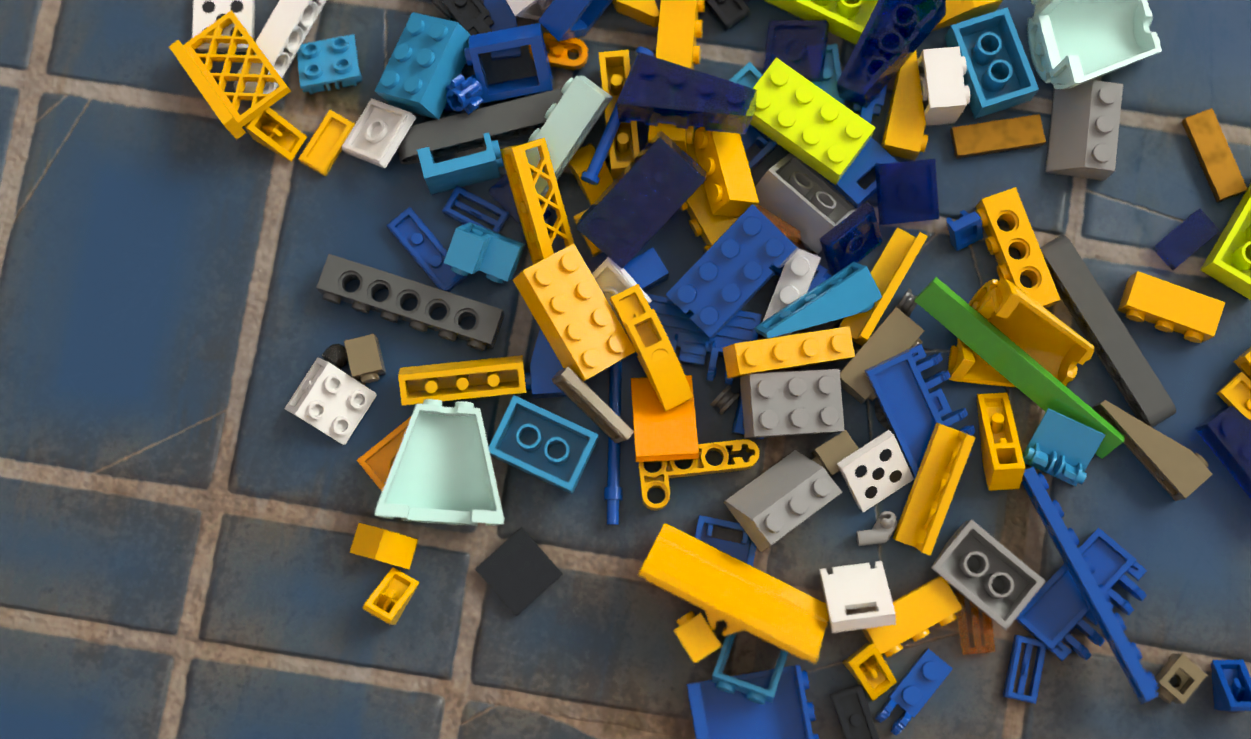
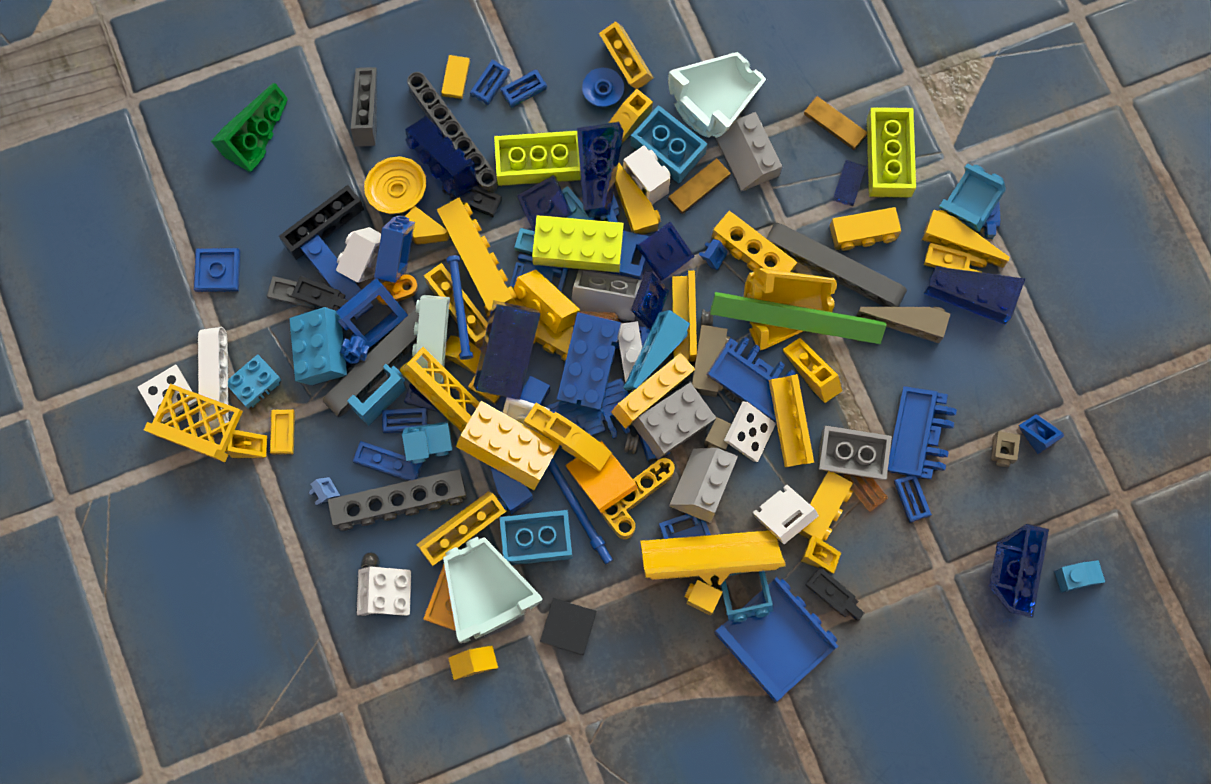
camera: 30 degrees left, 5 degrees down
(333, 240) = (324, 490): none -> medium blue tile
(365, 358) = (390, 552): dark tan brick -> none
(378, 133) = (312, 406): white tile -> none
(391, 596) = (497, 690): yellow slope -> none
(592, 405) = (552, 494): dark tan tile -> none
(684, 97) = (496, 271): clear blue wedge -> none
(880, 532) = (775, 467): light grey arm -> none
(915, 689) = (854, 550): blue hinge -> none
(1062, 447) = (853, 350): dark azure hinge -> none
(1094, 595) = (924, 426): blue plate -> none

